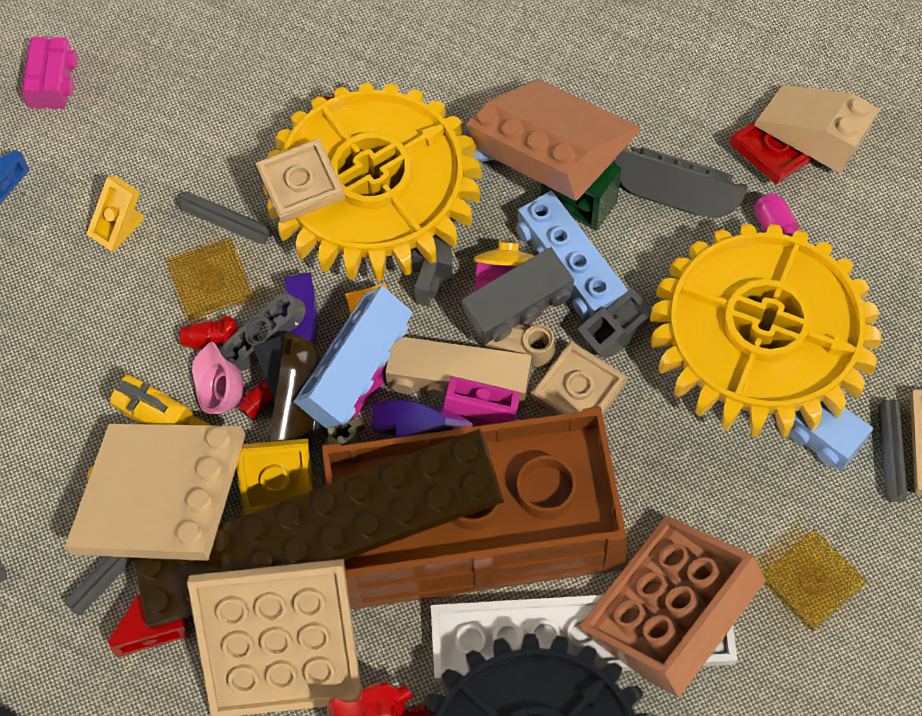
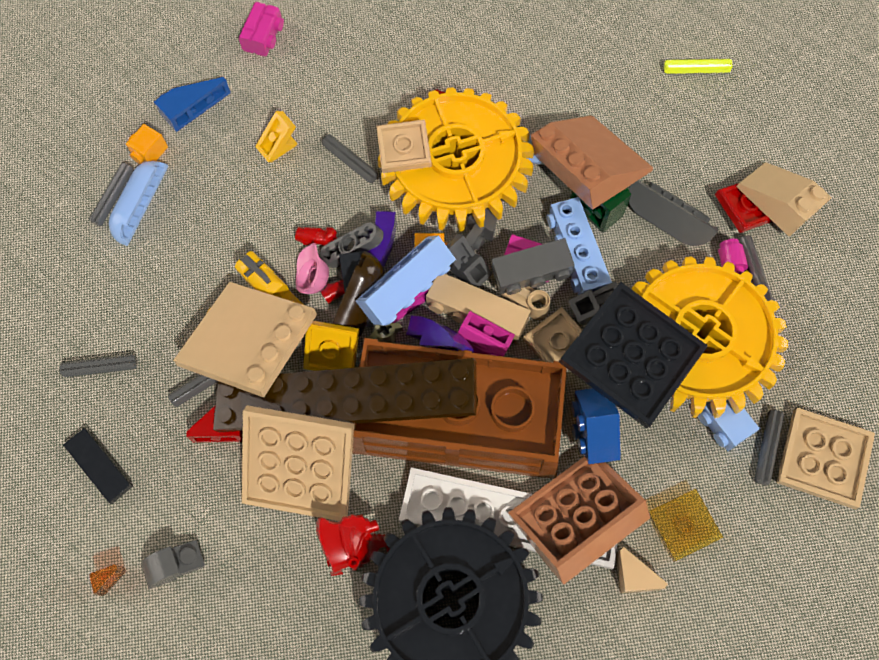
camera: 15 degrees right, 5 degrees up
(210, 279) = (327, 198): clear yellow plate -> none
(430, 318) = (468, 265): none -> dark grey brick
(506, 254) = (534, 235): yellow dish -> none
(662, 479) = (596, 426): none -> blue brick
(684, 373) = (633, 355): none -> black plate
(768, 661) = (635, 575): none -> tan slope
(806, 219) = (754, 264): none -> dark grey axle

